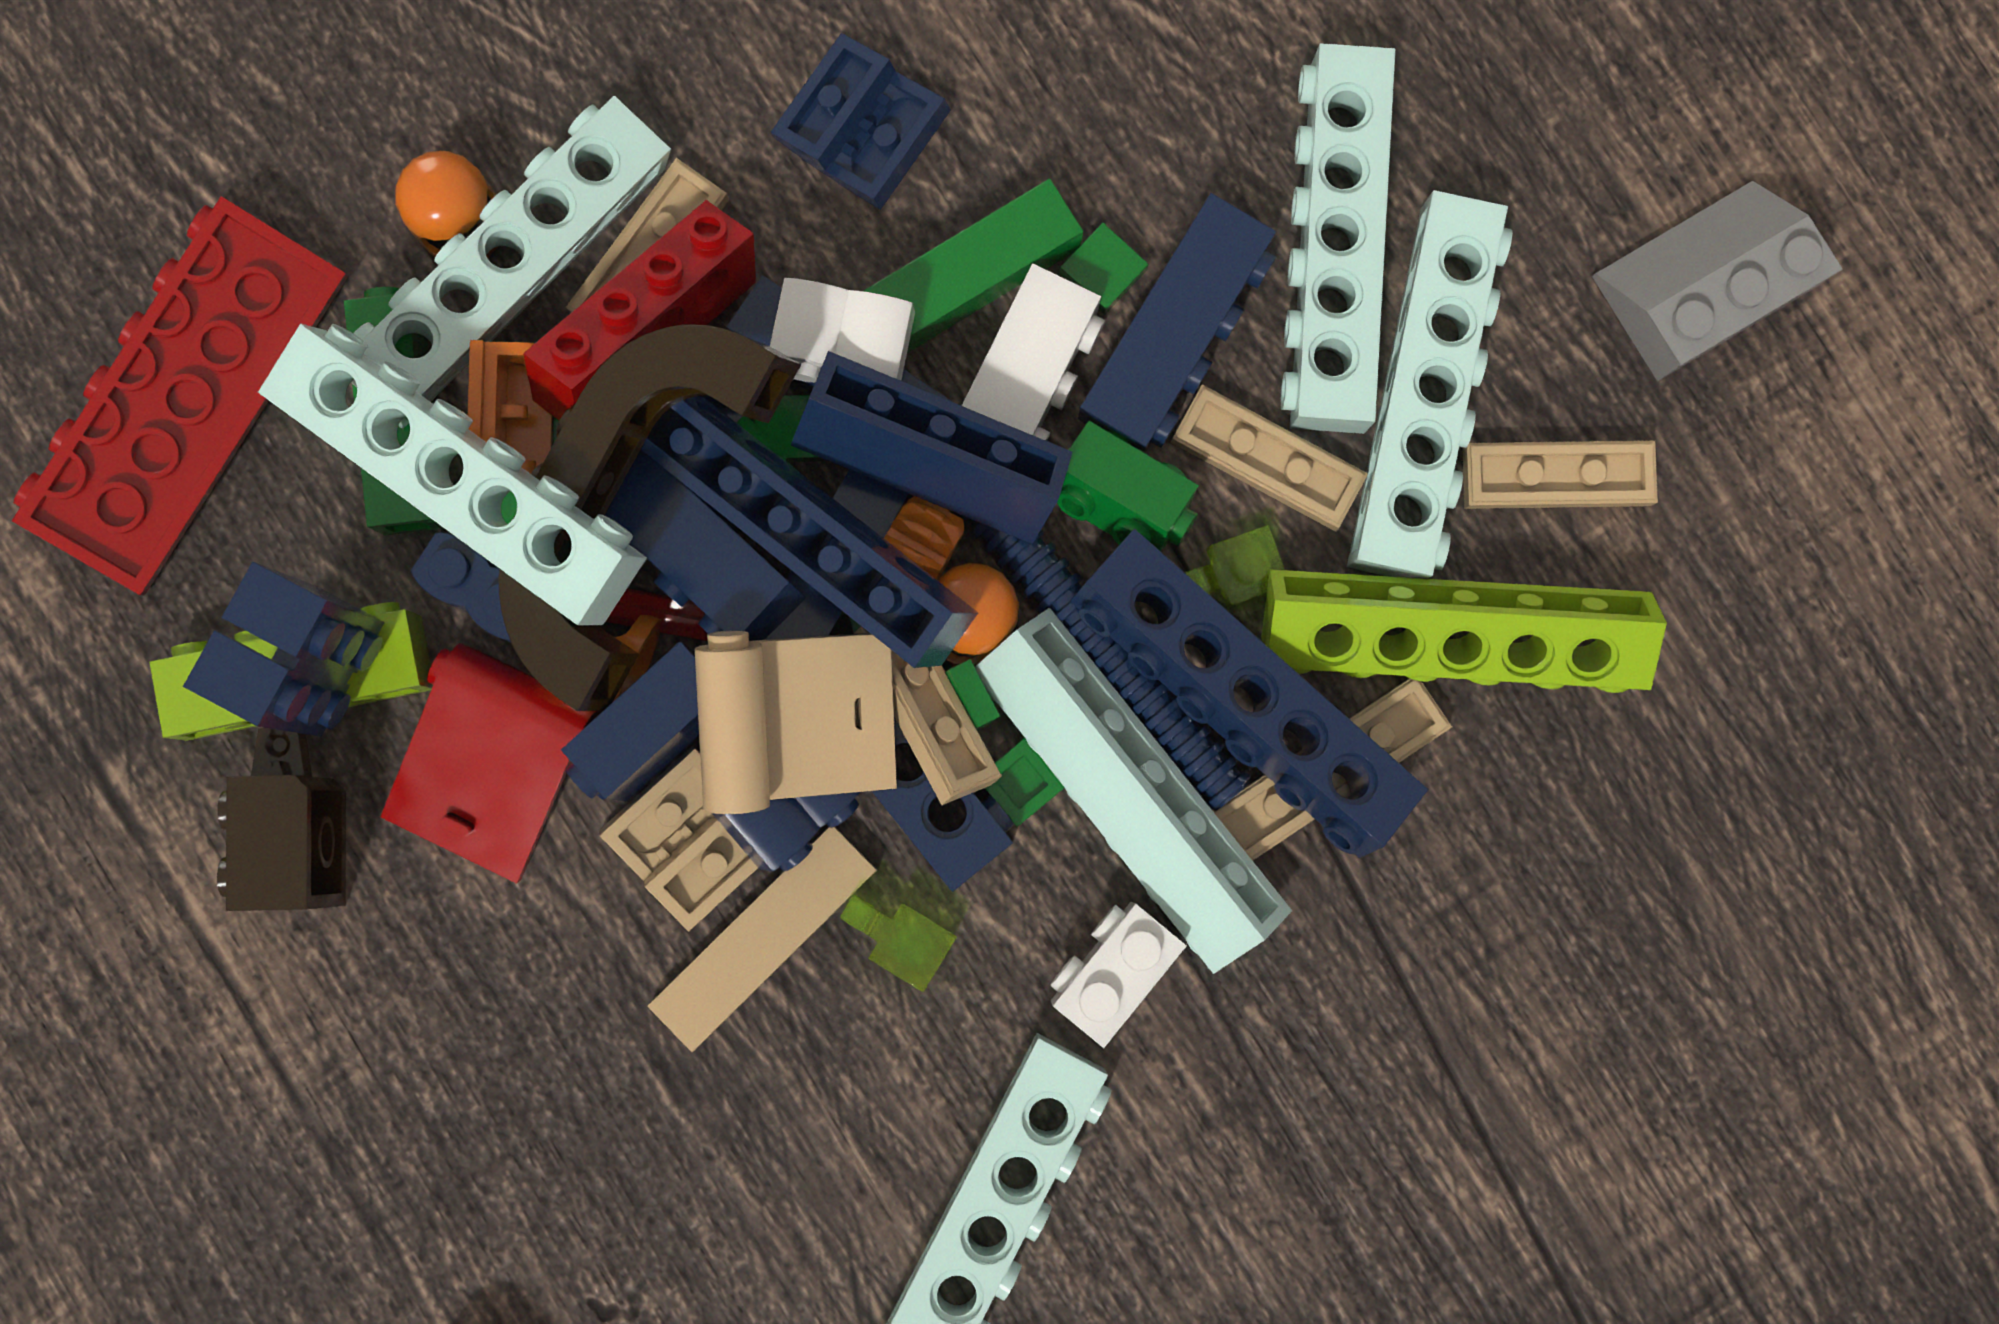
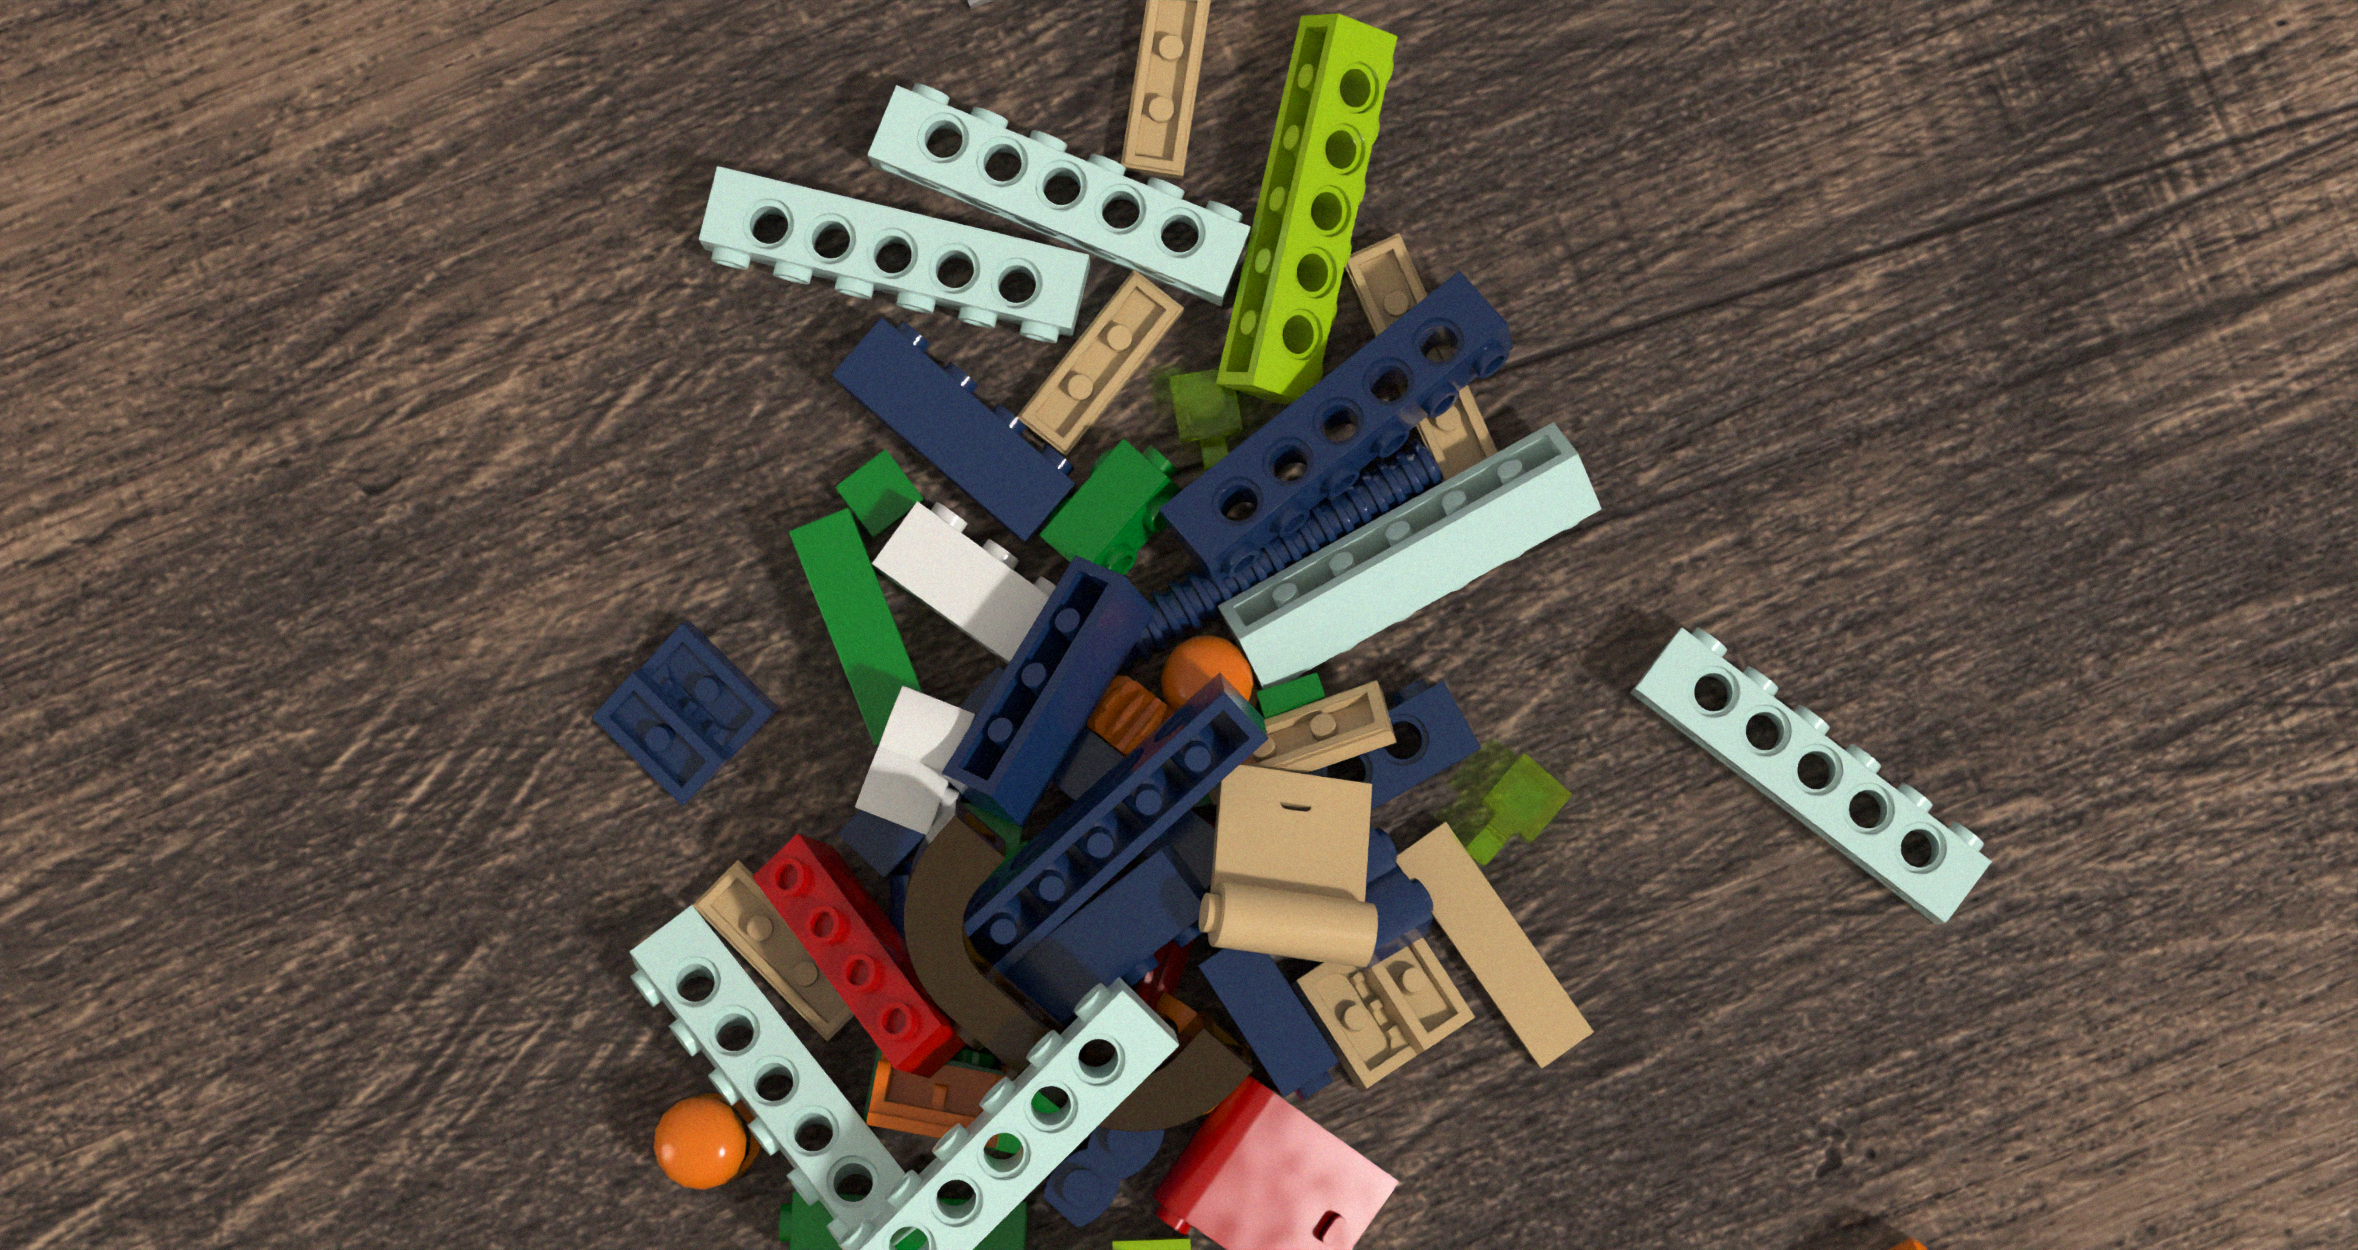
camera: 75 degrees left, 0 degrees up
(1024, 783) = (1384, 659): green tile -> none
(1116, 973) = (1584, 603): white brick -> none

